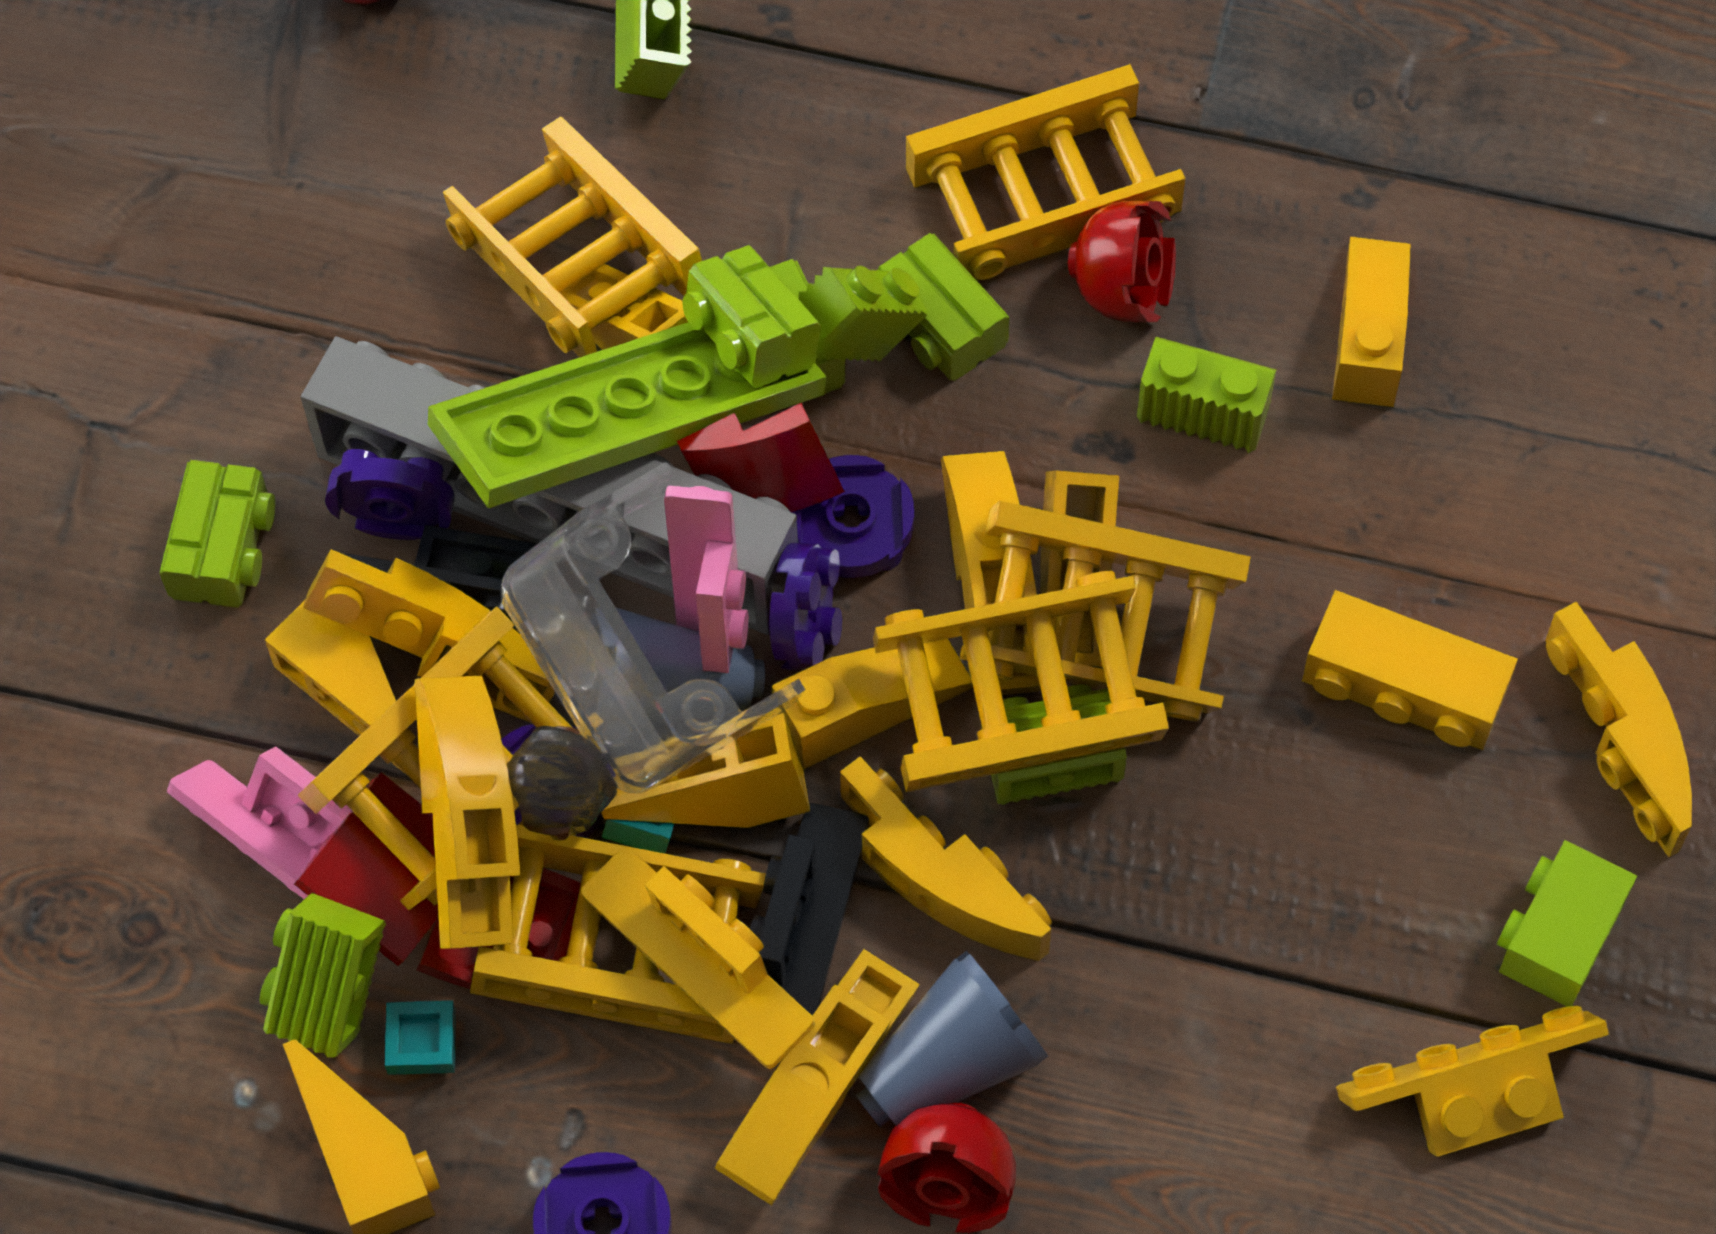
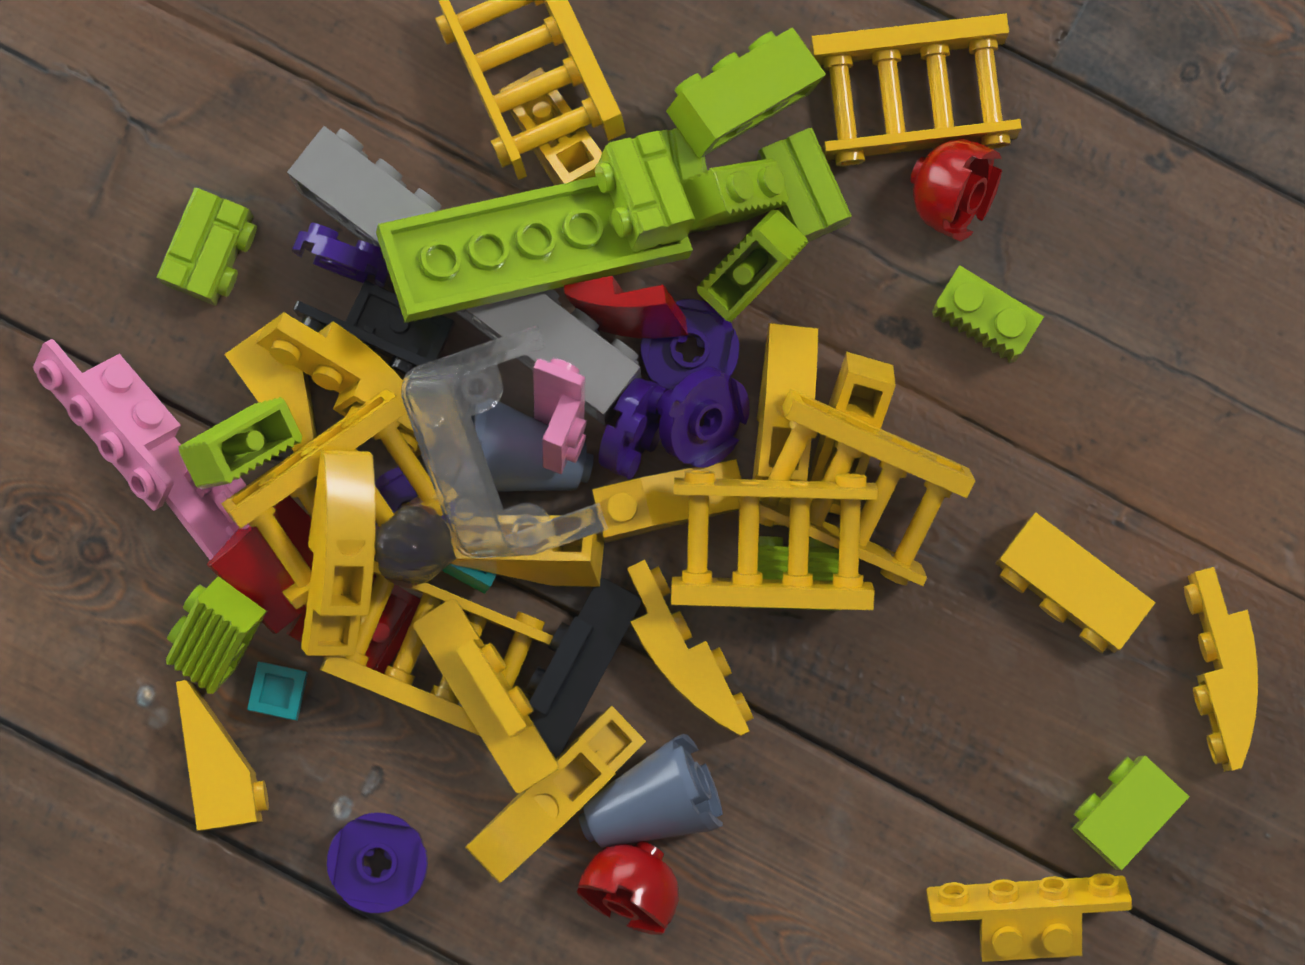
camera: 15 degrees right, 20 degrees up
(136, 752) = (116, 414): none -> bright pink bracket
(307, 723) = (240, 443): none -> lime brick
(842, 210) = (744, 91): none -> lime brick
(863, 564) = (686, 404): none -> dark purple plate
(903, 392) = (752, 265): none -> lime brick
(1372, 322) = (1137, 275): yellow slope -> none

